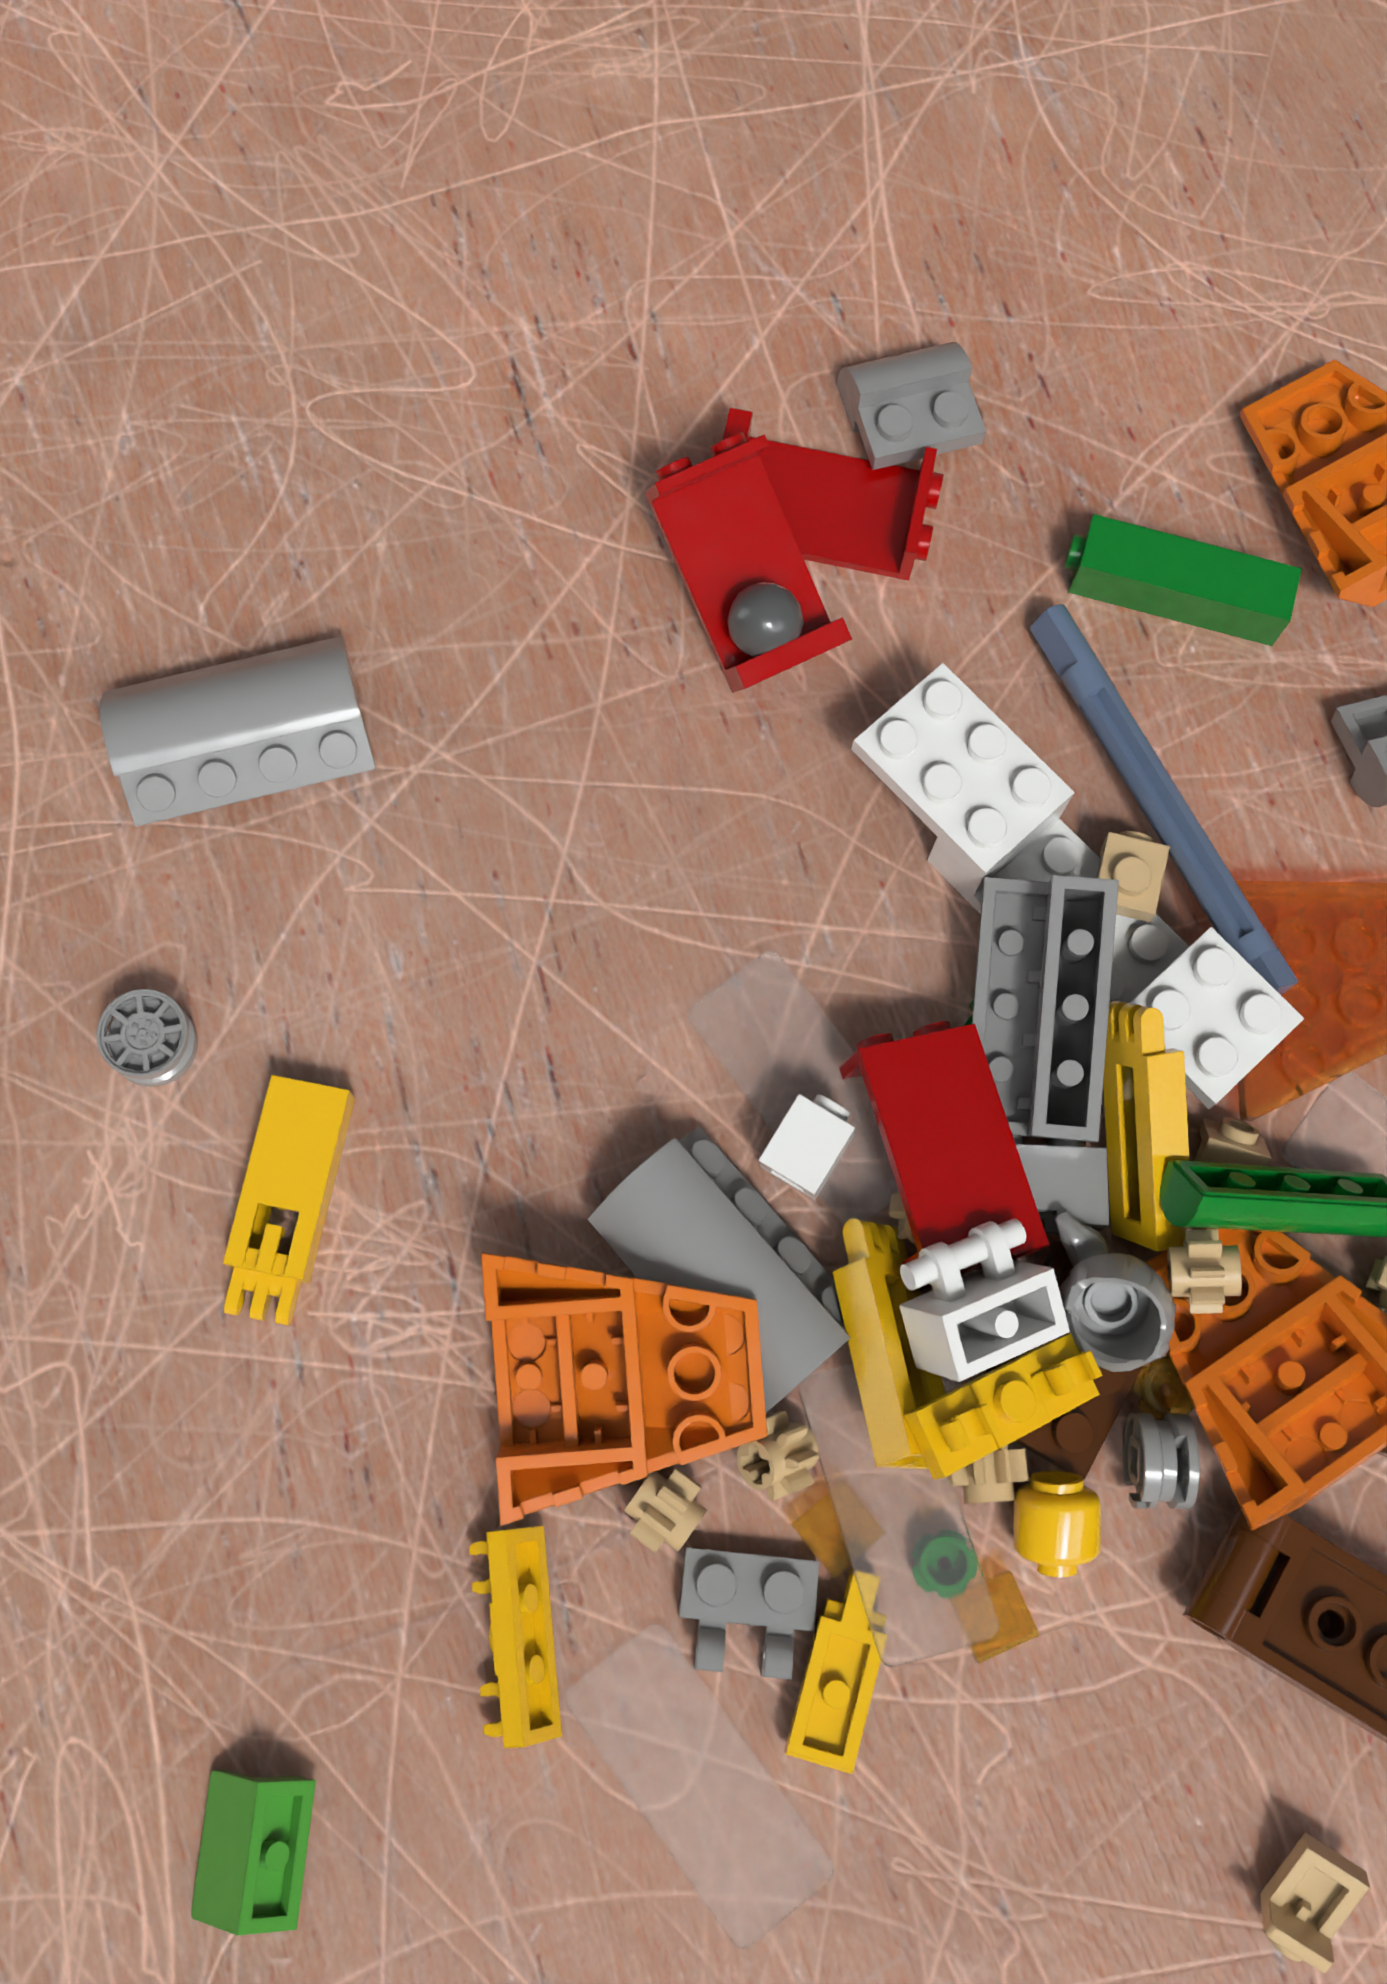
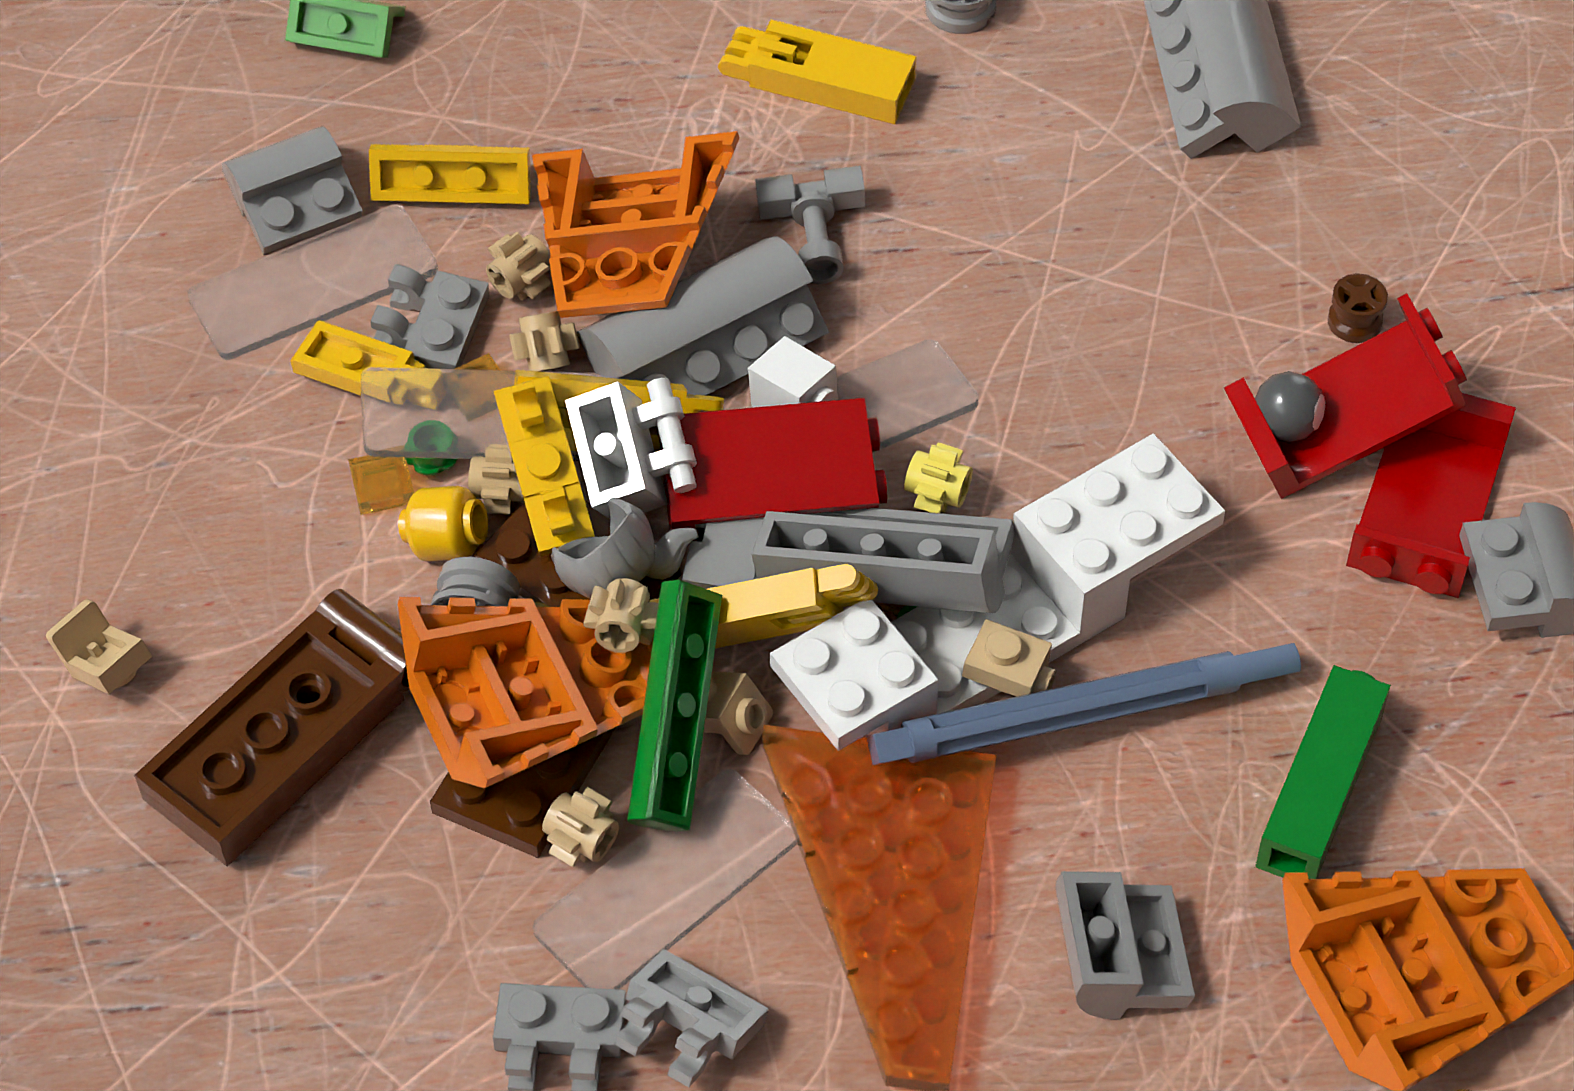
camera: 105 degrees right, 20 degrees down
(508, 1172) = (813, 206): none -> light grey bar
(567, 1850) = (293, 189): none -> light grey brick
(585, 558) = (1357, 308): none -> reddish brown wheel
(899, 976) = (938, 478): none -> light yellow gear

